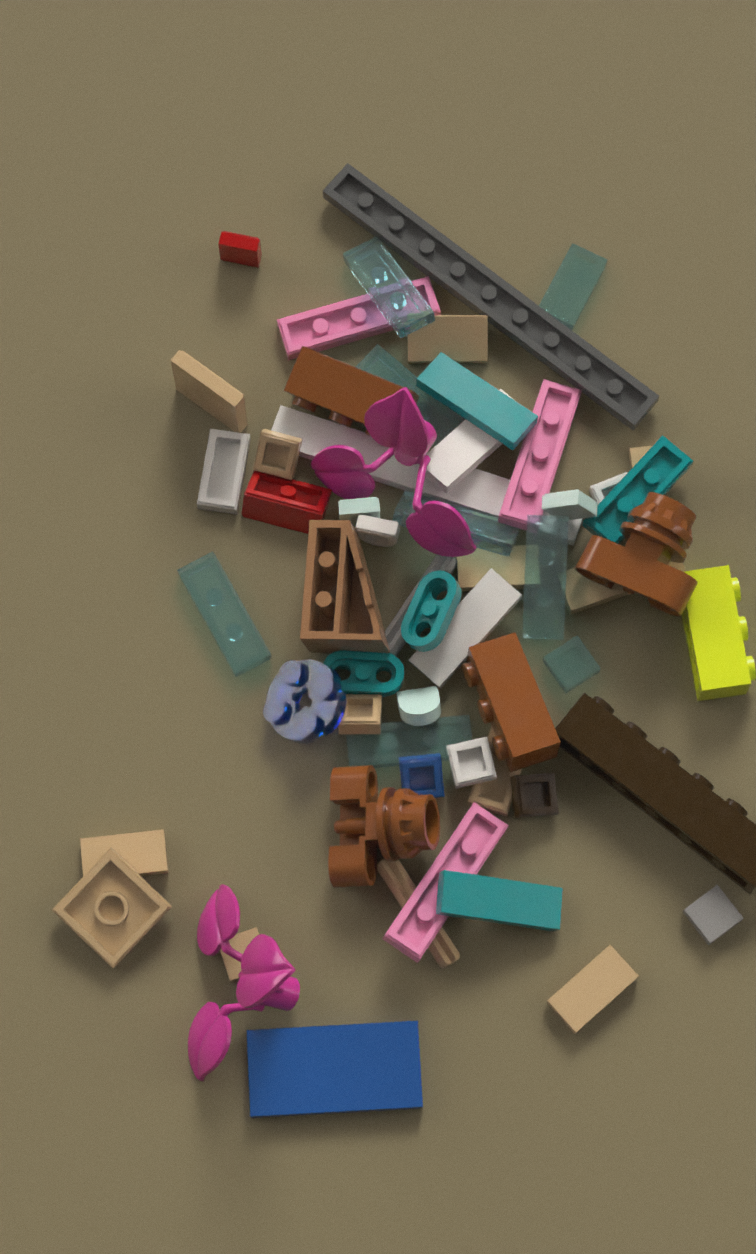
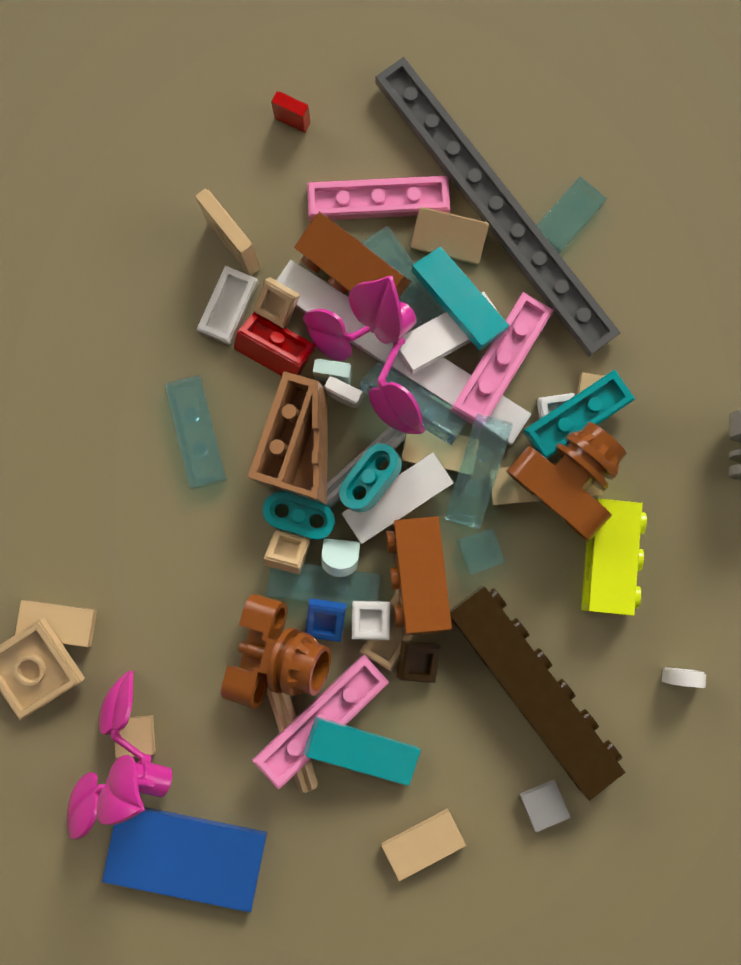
camera: 15 degrees right, 10 degrees up
(284, 695) = (224, 524): clear blue plate -> none
(389, 287) = (410, 177): clear light blue tile -> none
(569, 503) = (516, 413): light aqua tile -> none

